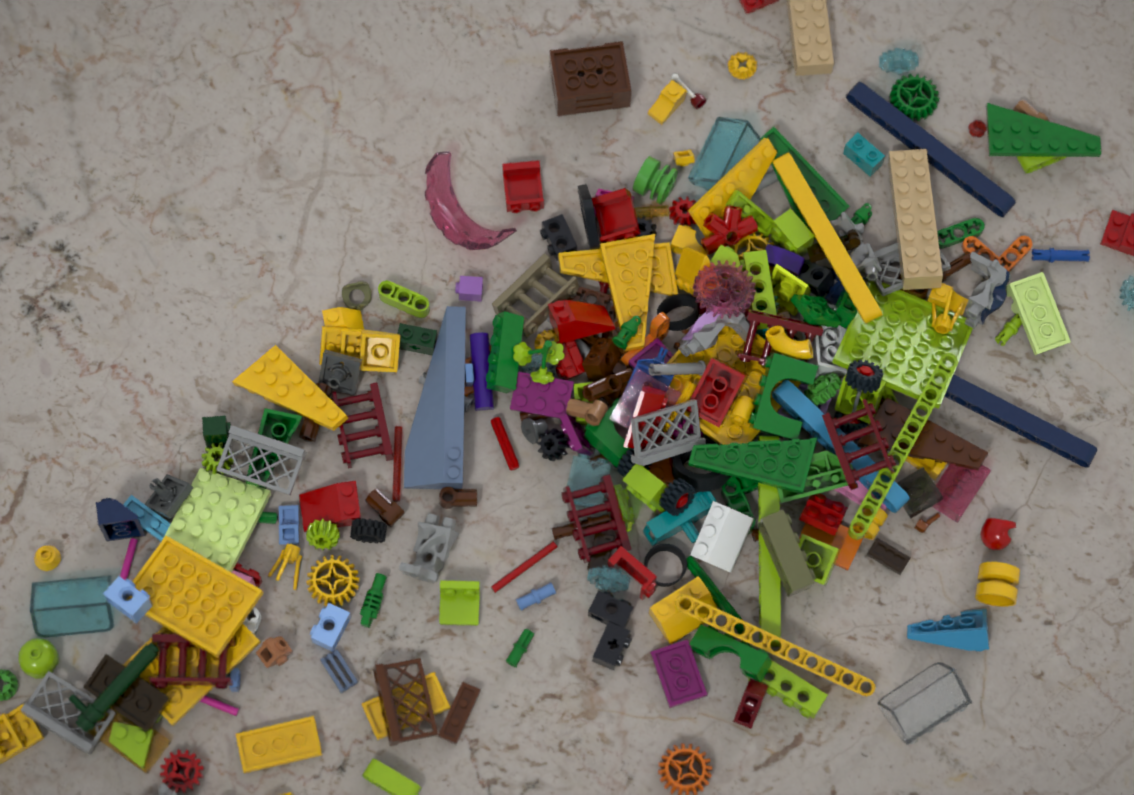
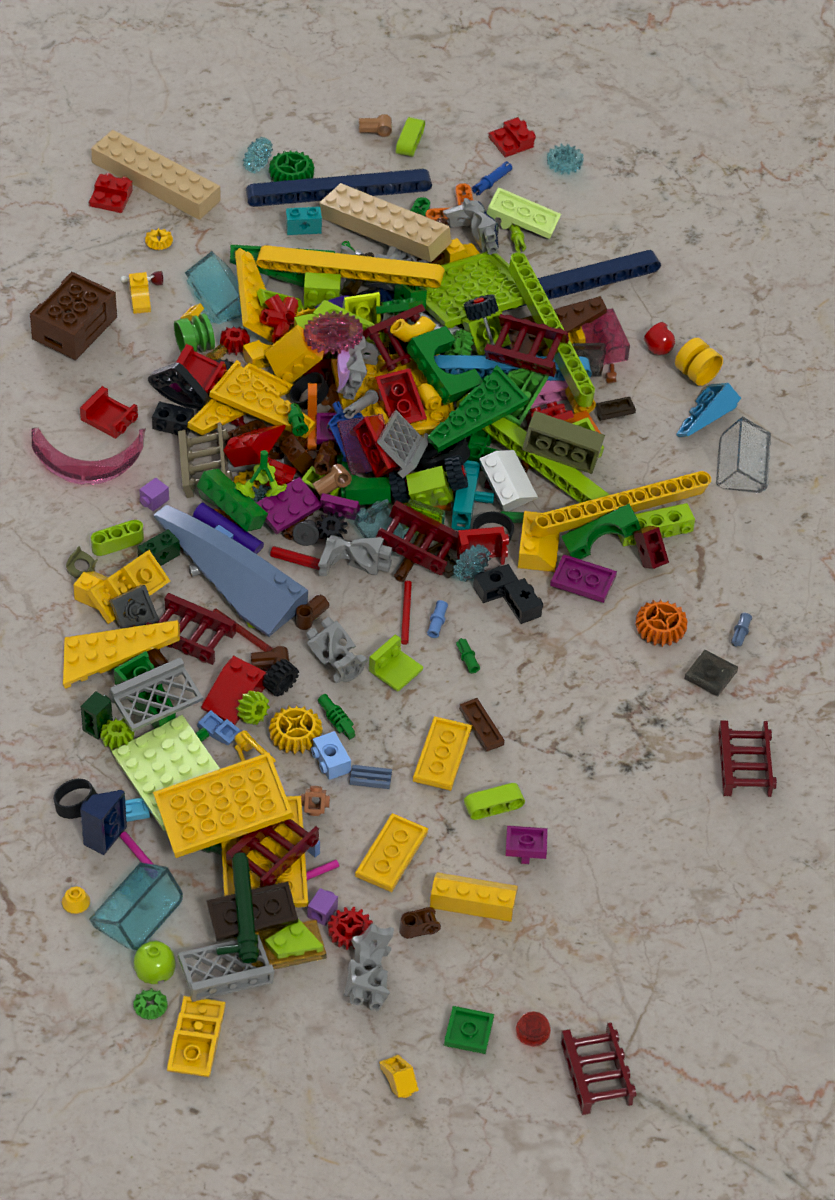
camera: 50 degrees left, 20 degrees down
(133, 608) = (184, 842): light blue brick -> none
(136, 494) = (72, 811): none -> black tyre
(168, 495) = (113, 777): dark grey plate -> none
(185, 735) = (322, 906): none -> medium lavender brick
(387, 702) = (435, 755): reddish brown fence -> none
(545, 484) = (363, 553): none -> light grey hips
(943, 323) = (477, 258): yellow plant -> none
(977, 124) = (351, 156): clear red plate -> none
(1024, 135) = (390, 131): green wing -> none

